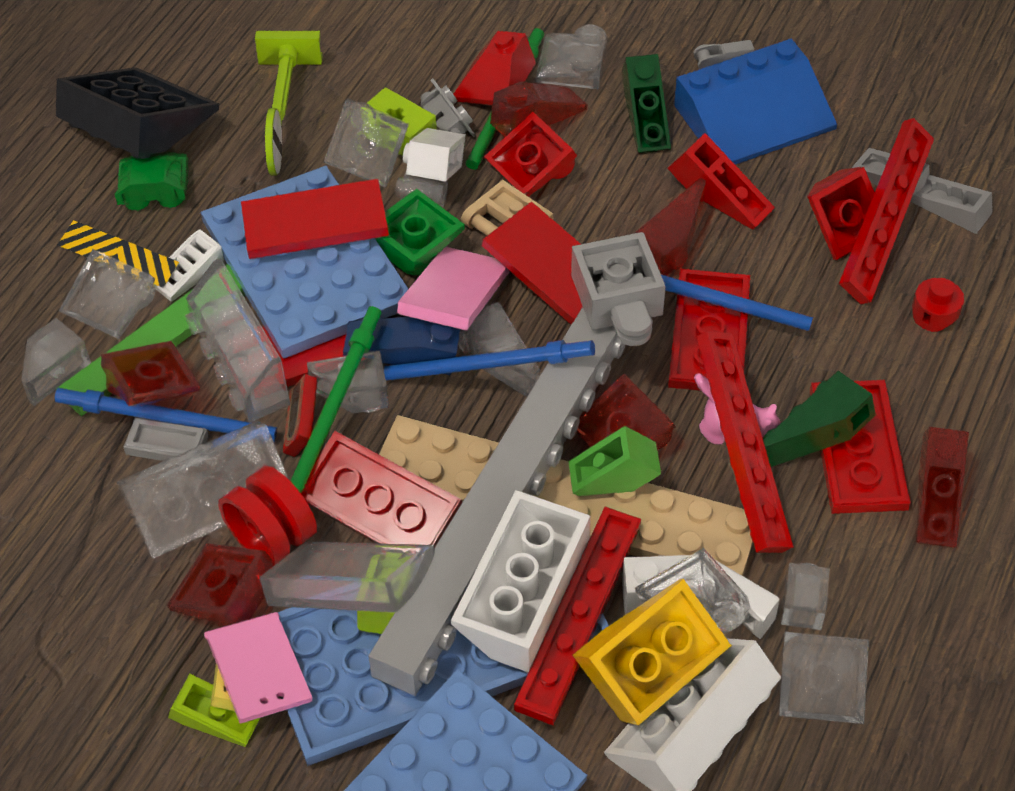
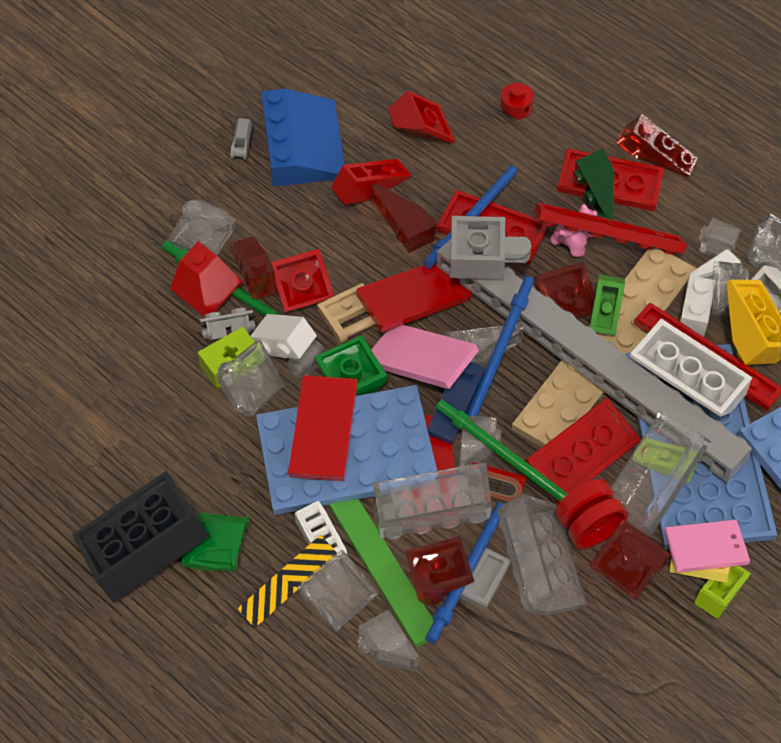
camera: 75 degrees left, 5 degrees up
(285, 50) = (216, 436): lime piece -> none
(646, 103) = (272, 198): dark green slope -> none
(886, 211) = (430, 90): red plate -> none
(948, 199) = (409, 76): light grey slope -> none

